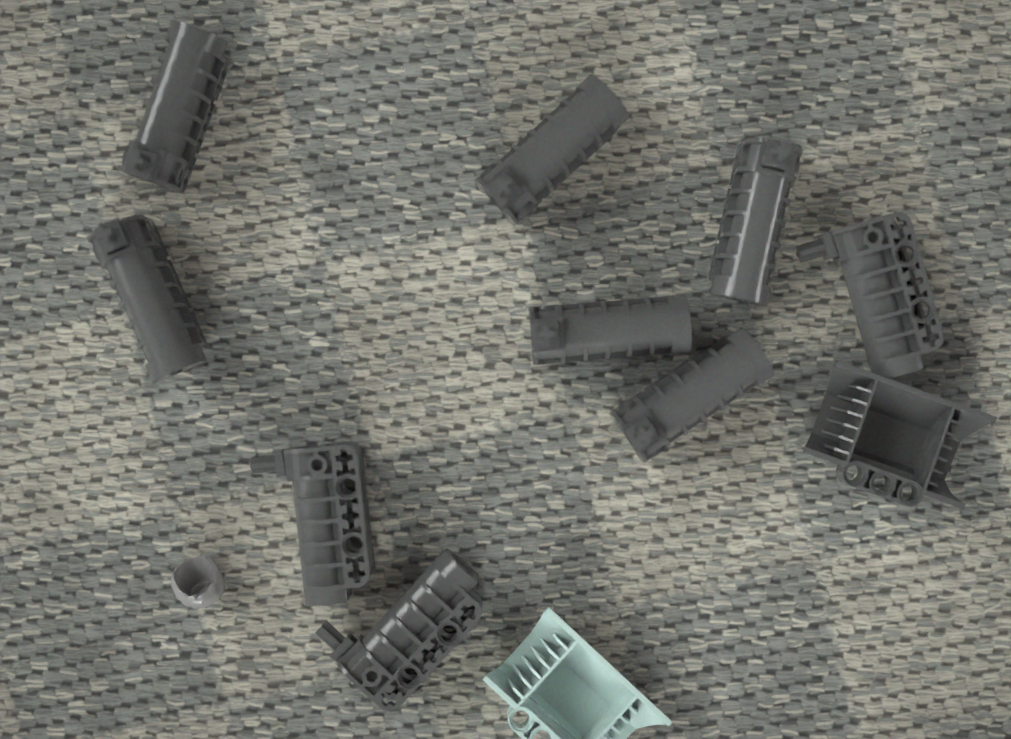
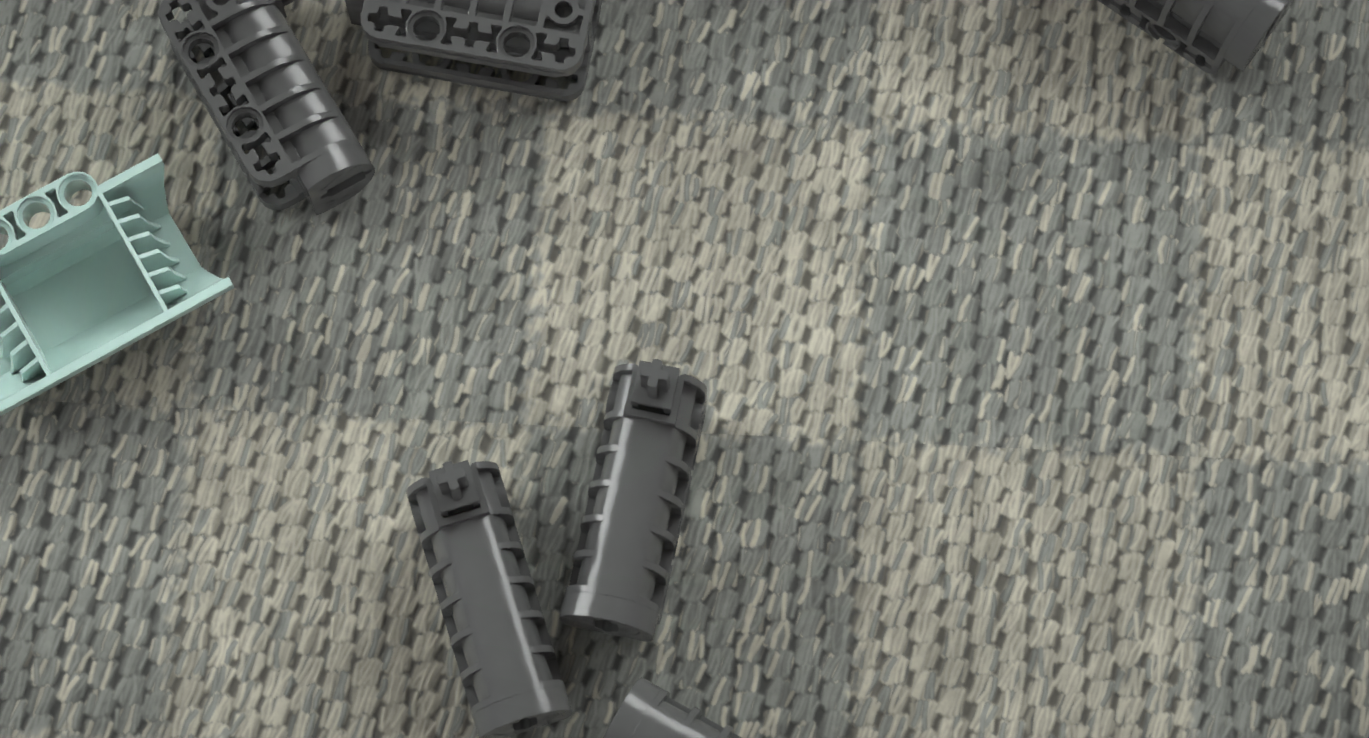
camera: 105 degrees right, 15 degrees down
(553, 149) = (938, 498): dark grey piece -> none

